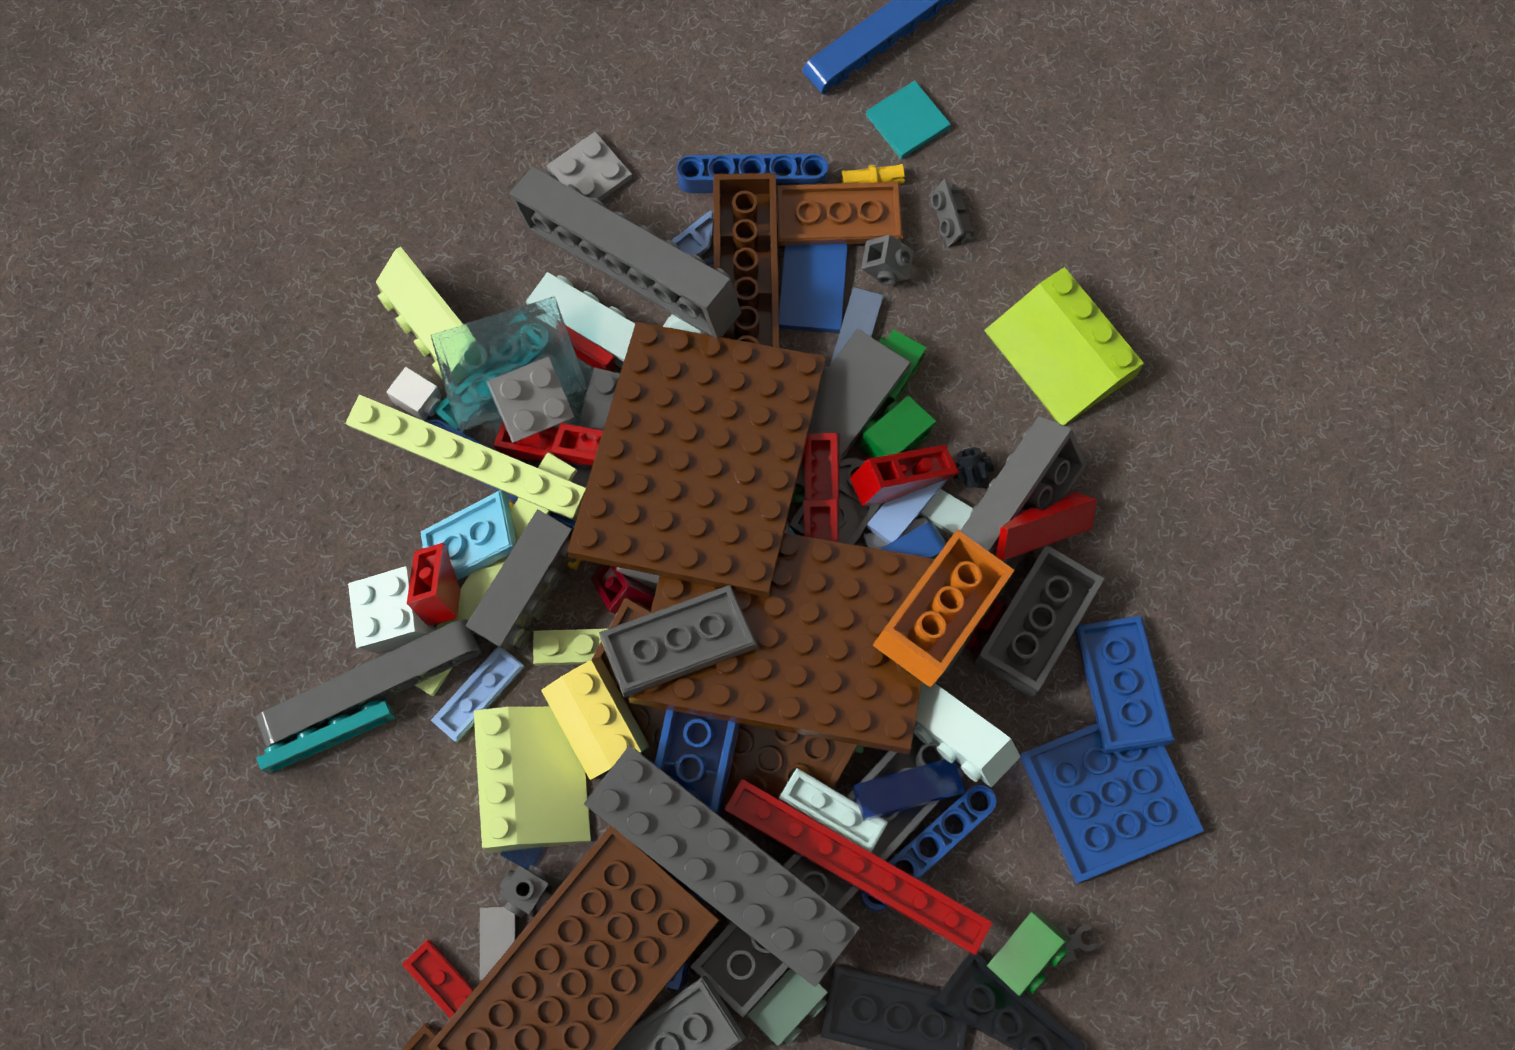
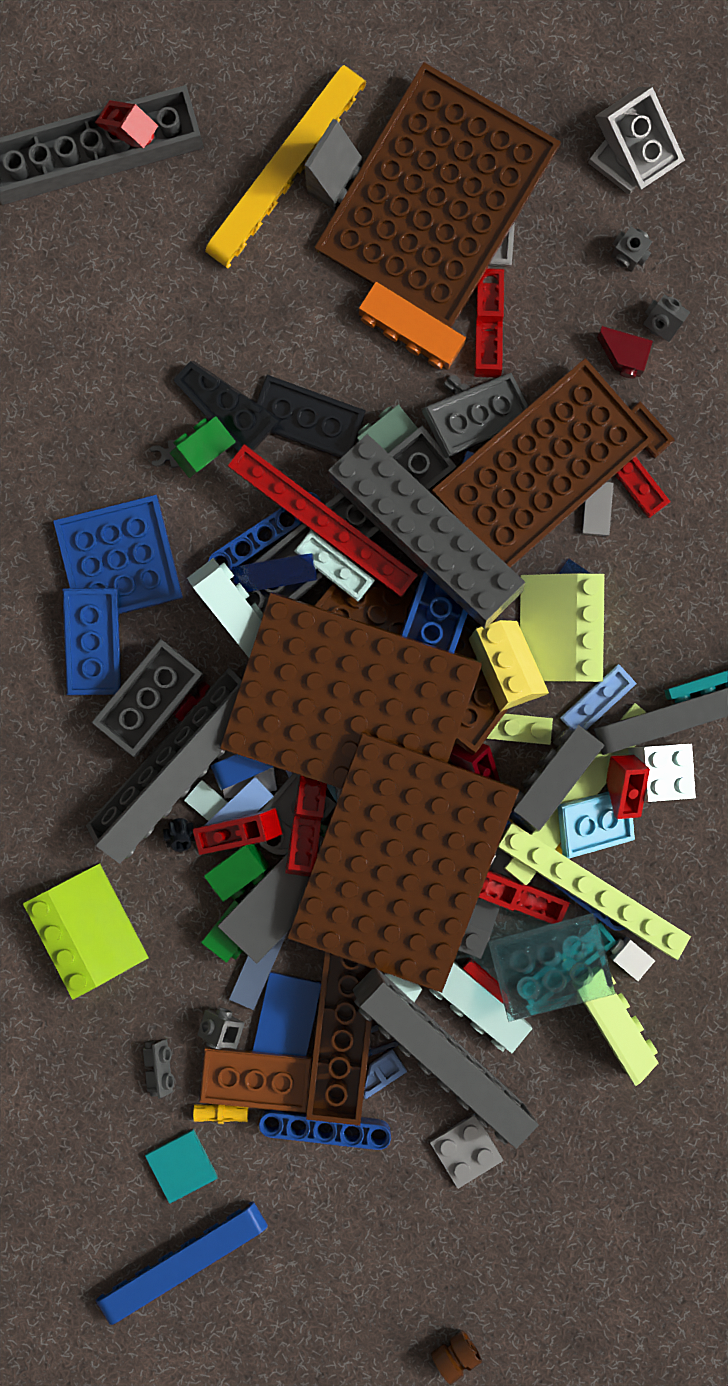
camera: 170 degrees left, 15 degrees up
(530, 399) = (536, 932): light grey plate -> none
(537, 896) = (566, 548): dark grey brick -> none
(677, 640) = (439, 703): dark grey tile -> none
(943, 608) = (226, 700): orange brick -> none
(1042, 527) = (134, 769): red slope -> none

